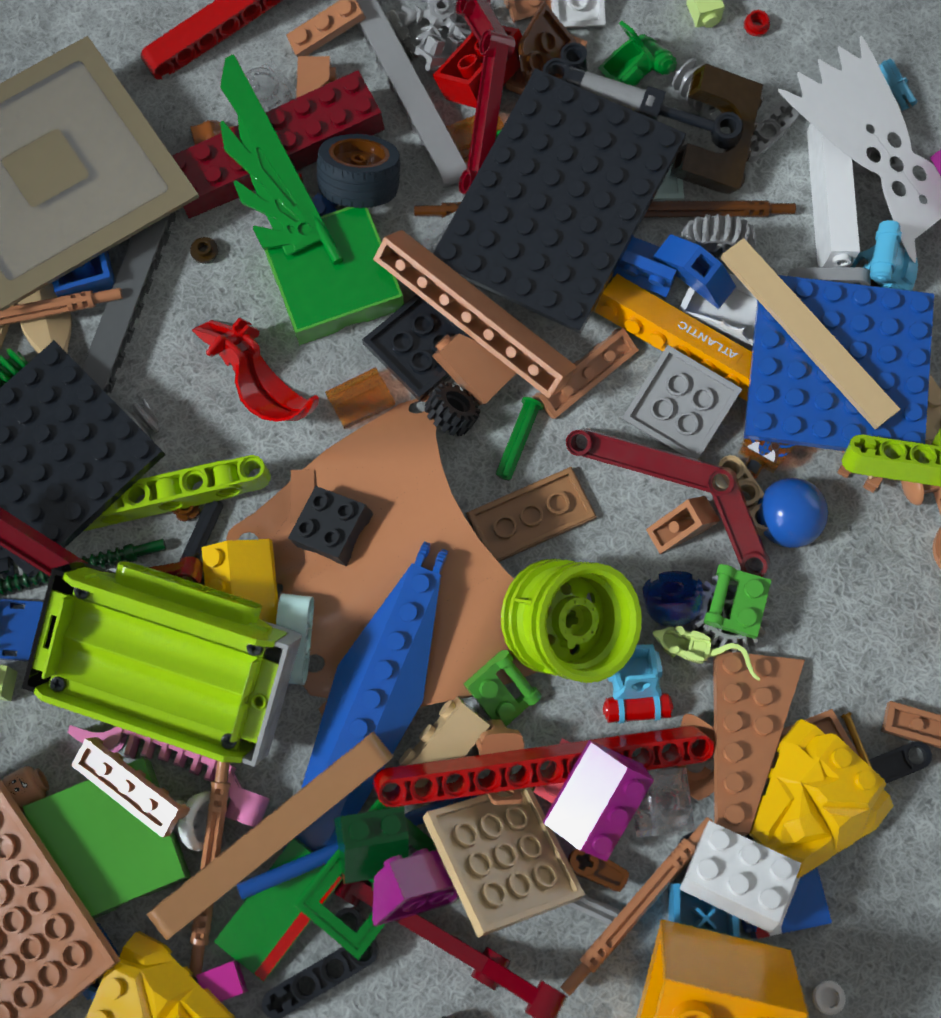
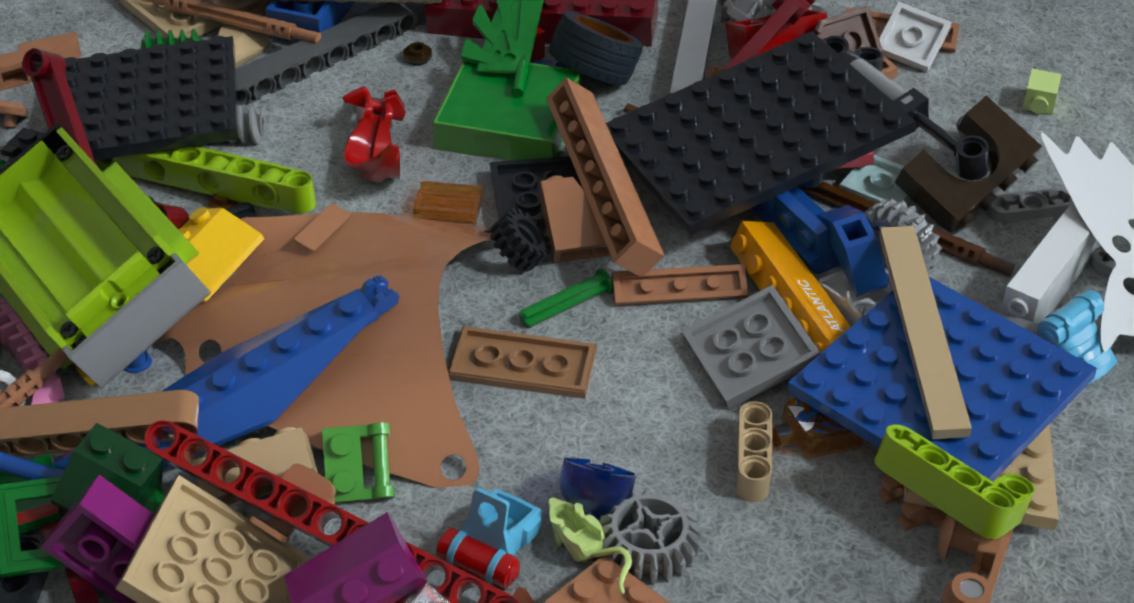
camera: 35 degrees right, 30 degrees down
(297, 614) = (228, 293): light aqua beam -> none
(330, 525) = (321, 245): black brick -> none
(549, 615) = (513, 390): lime wheel -> none
(637, 58) = (950, 95): green piece -> none
(683, 523) = (669, 438): nougat slope -> none
(687, 472) = (727, 409): dark red piece -> none
(747, 602) = (665, 524): bright green plate -> none
(760, 17) = (1088, 127): red plate -> none
(792, 512) = (792, 488): blue piece -> none

